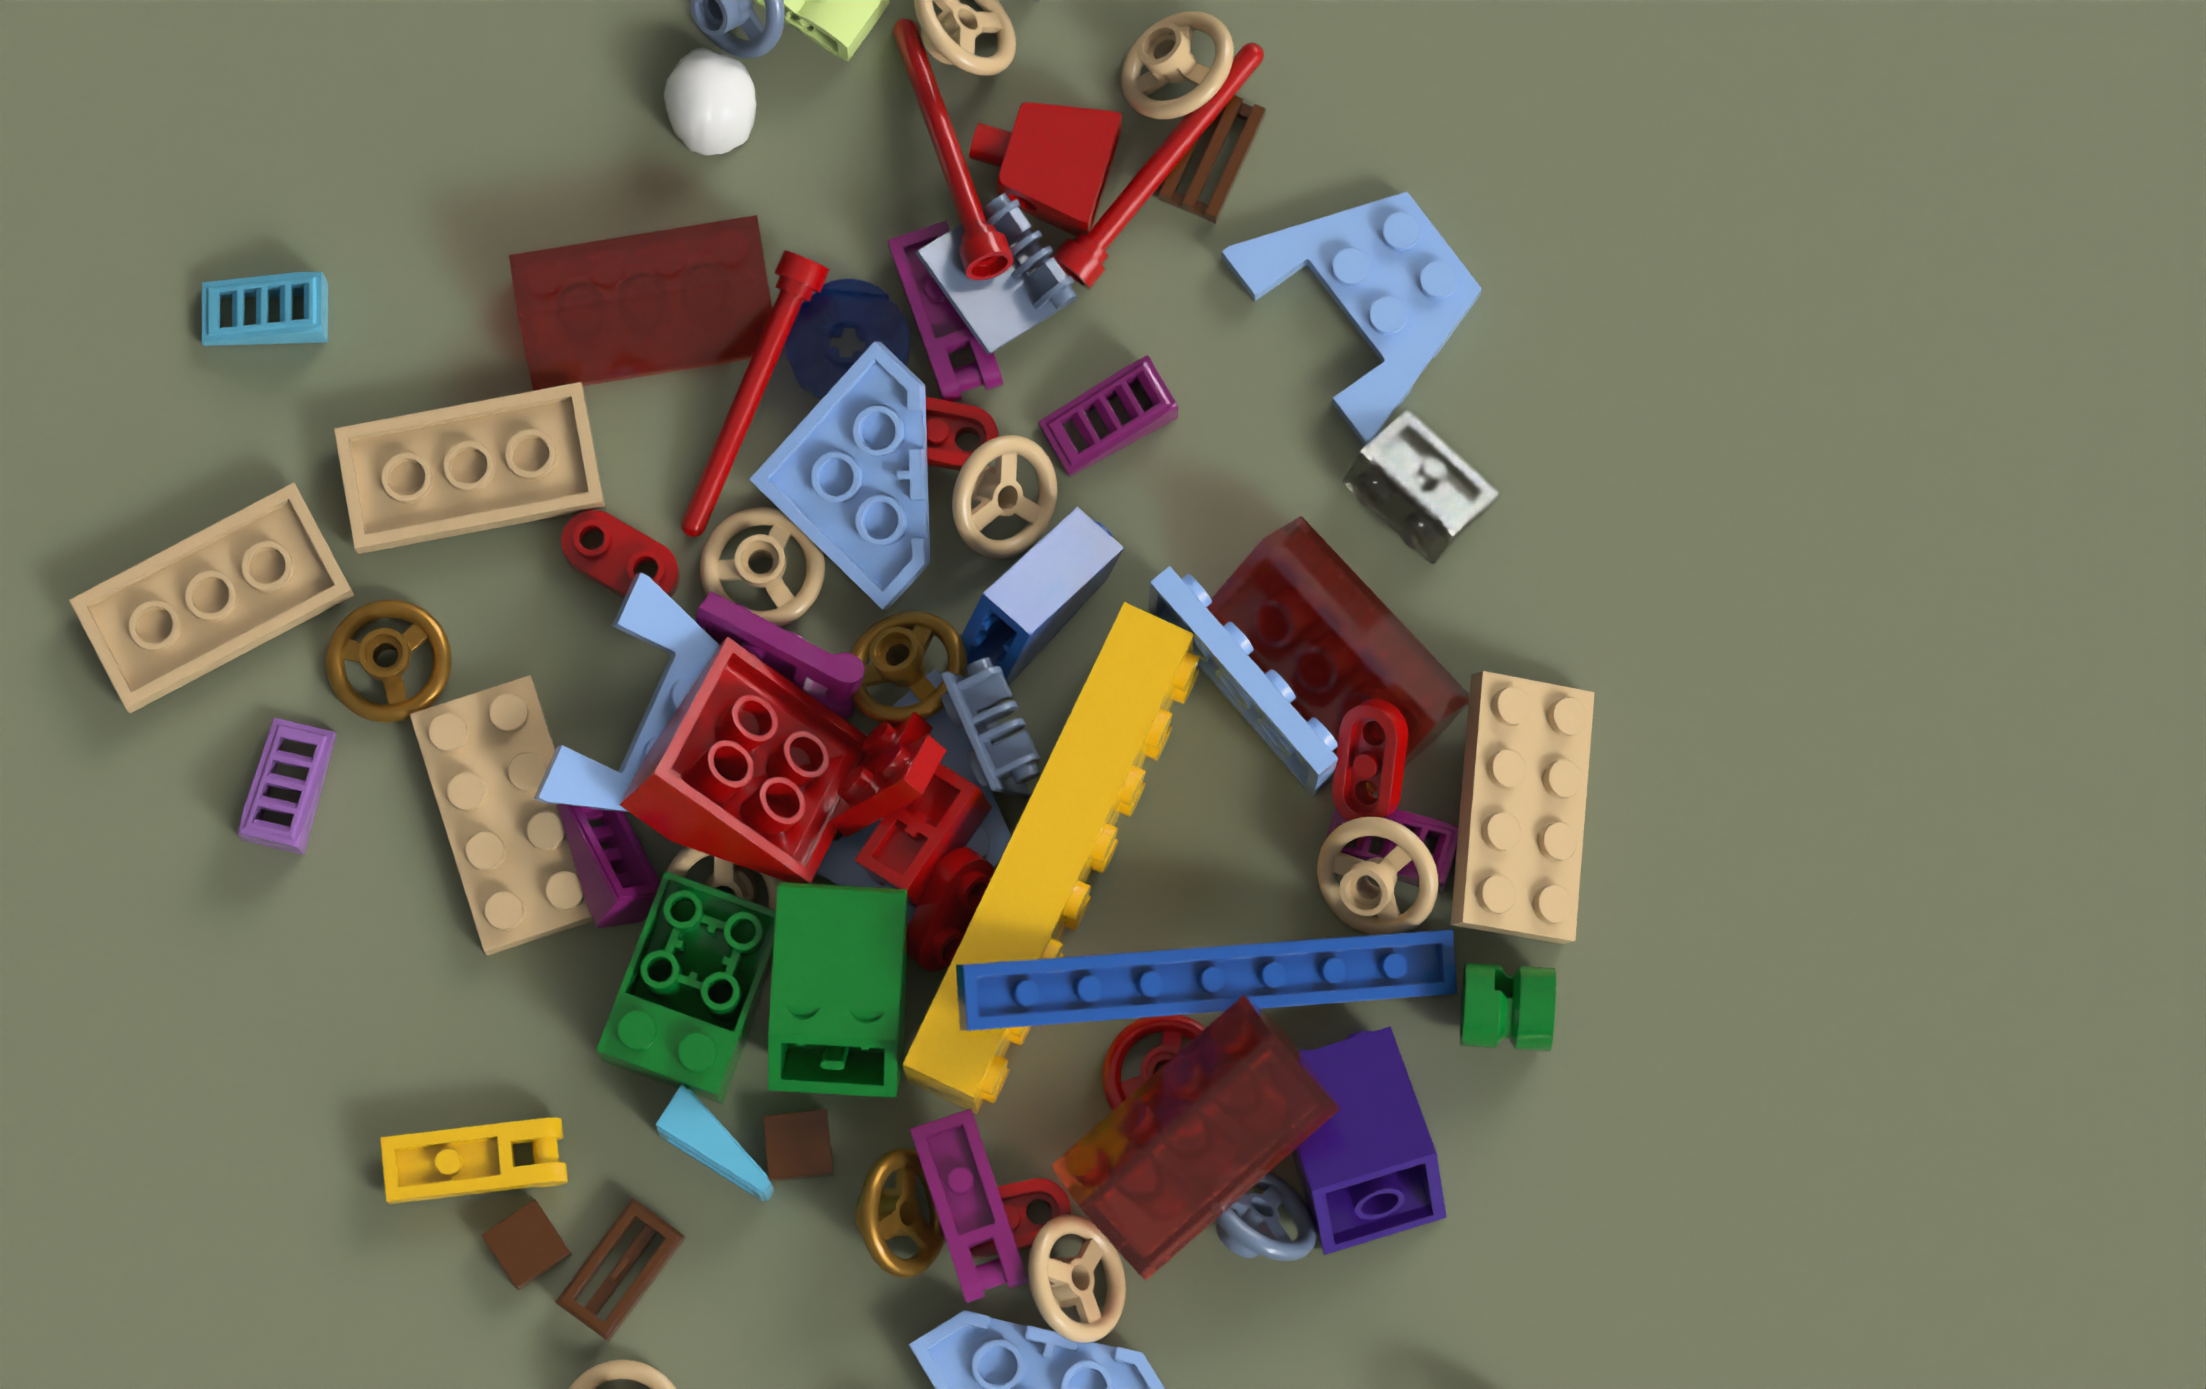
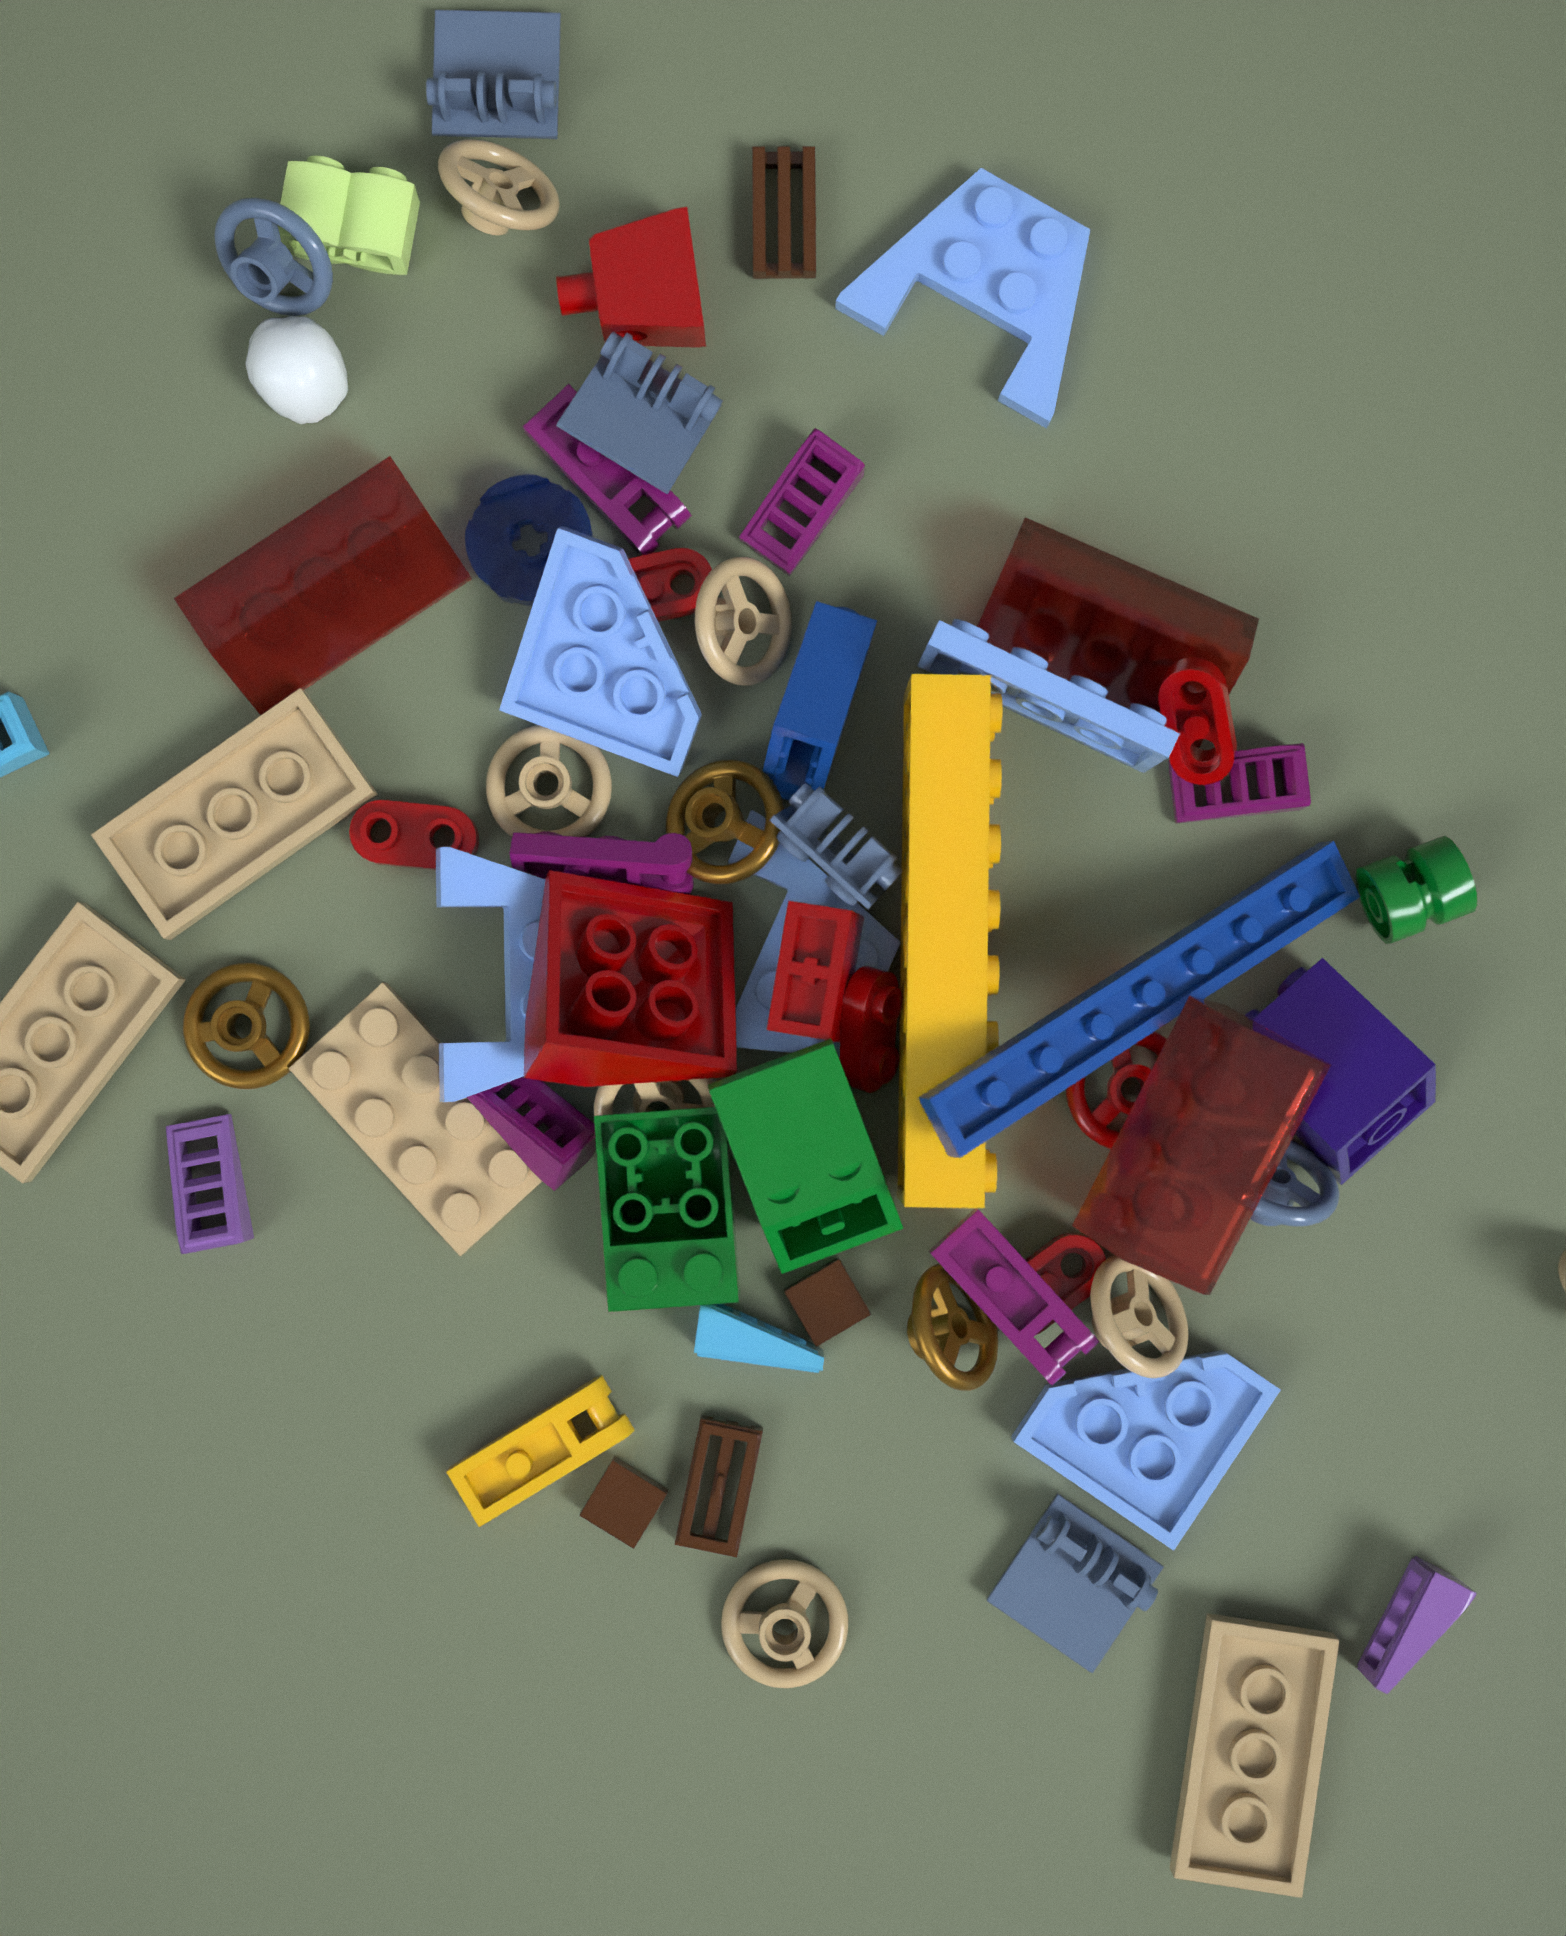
camera: 30 degrees left, 10 degrees up
(797, 282) = (458, 505): red piece -> none
(891, 774) = (761, 932): red plate -> none
(983, 248) = (618, 393): red piece -> none
(1086, 253) = (712, 356): red piece -> none
(1167, 55) = (706, 135): tan piece -> none
(1360, 899) = (1250, 851): tan piece -> none
(1418, 486) = (1117, 442): clear smoke bracket -> none
(1522, 808) = (1346, 699): tan plate -> none

